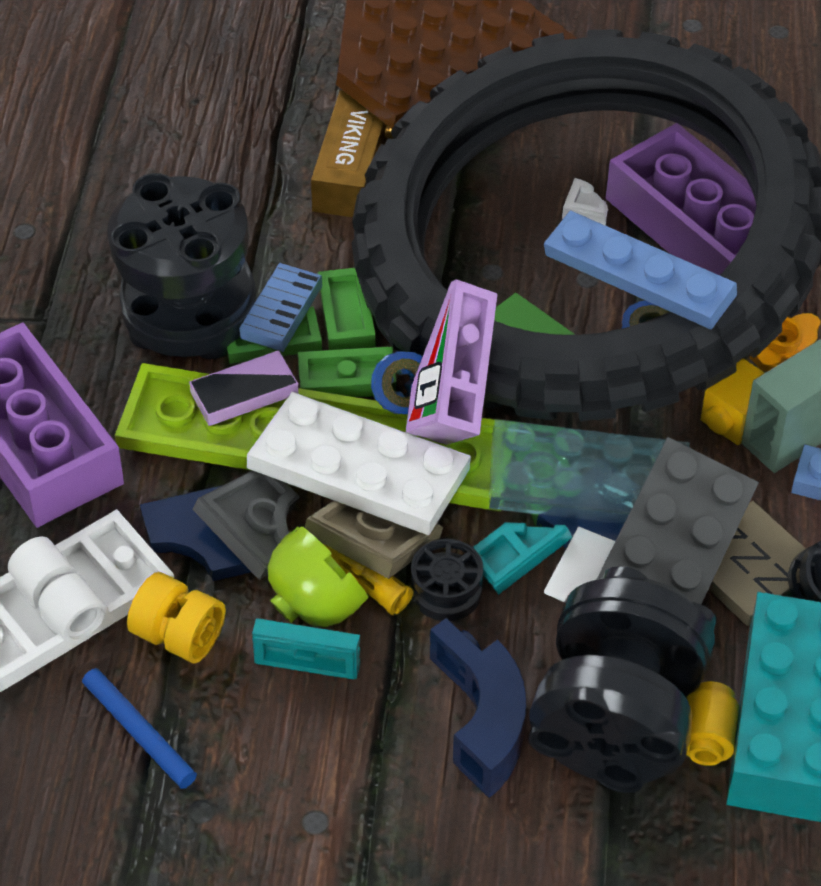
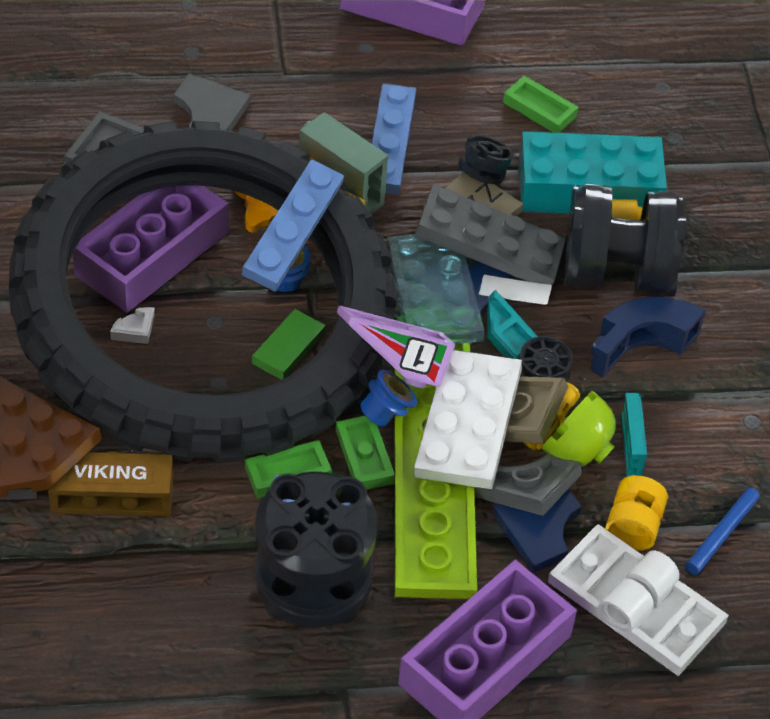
camera: 105 degrees left, 0 degrees up
(243, 388) = (412, 505): tile -> none

